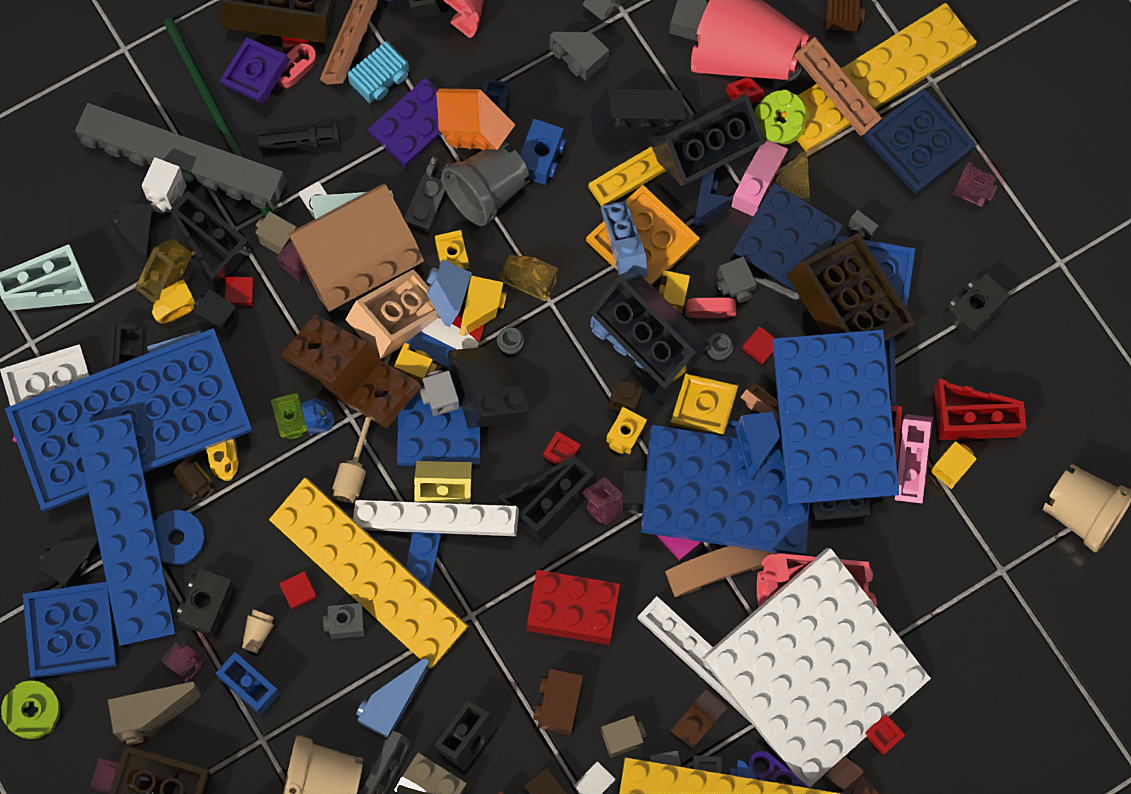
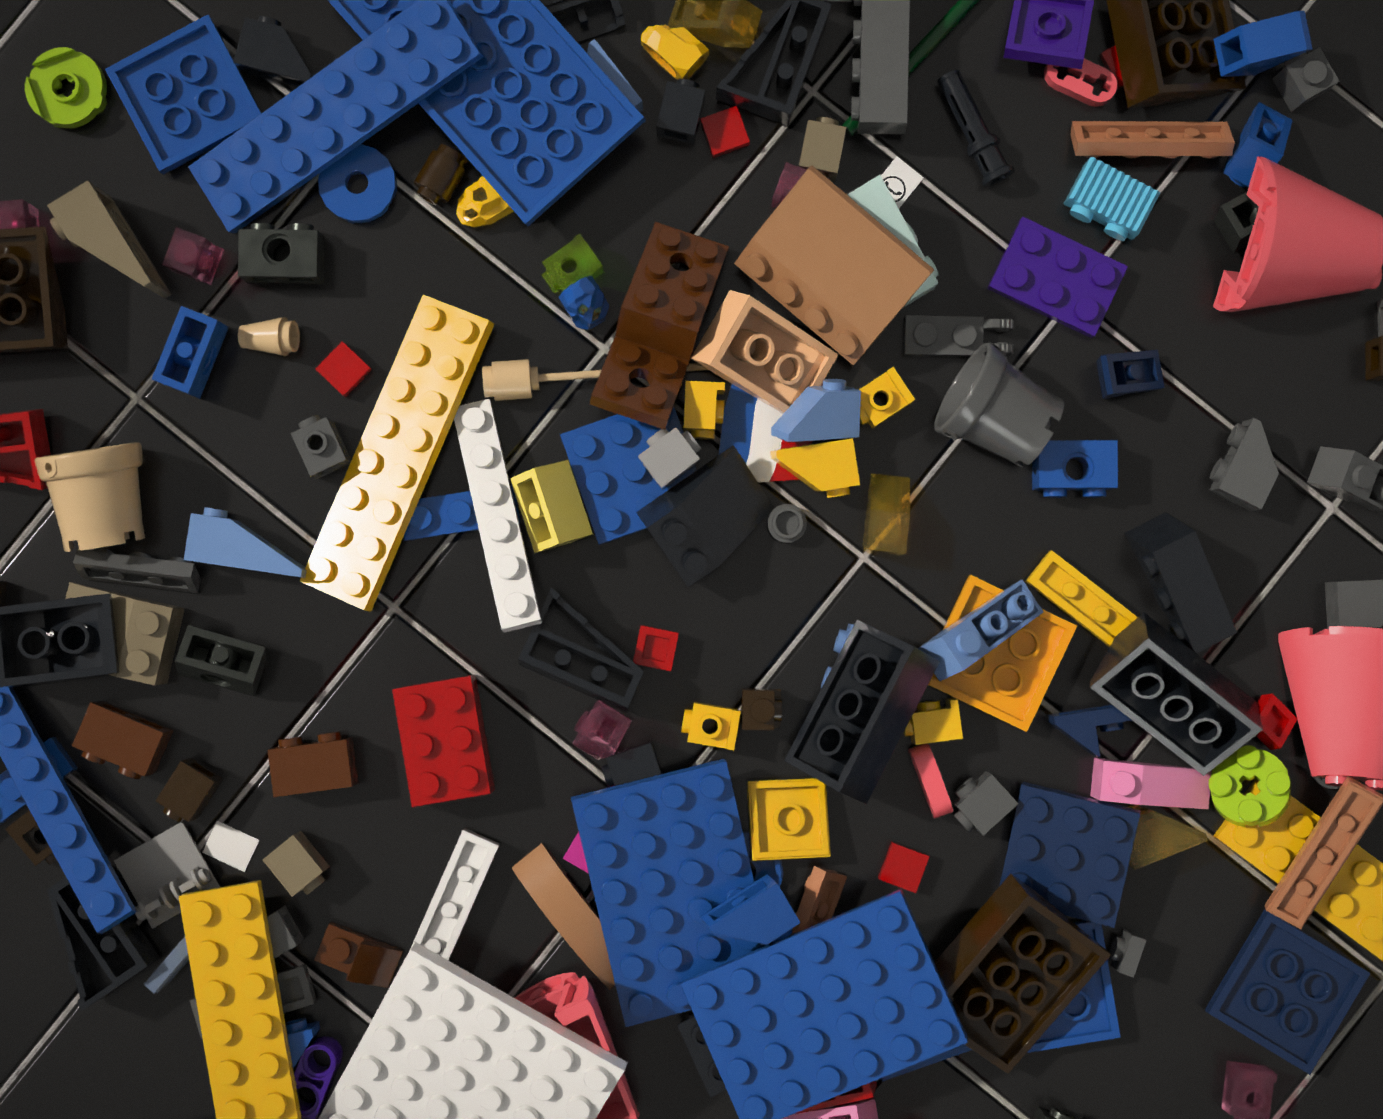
camera: 75 degrees right, 15 degrees up
(471, 119) = (1076, 356): orange slope -> none
(720, 346) = (881, 811): dark grey plate -> none

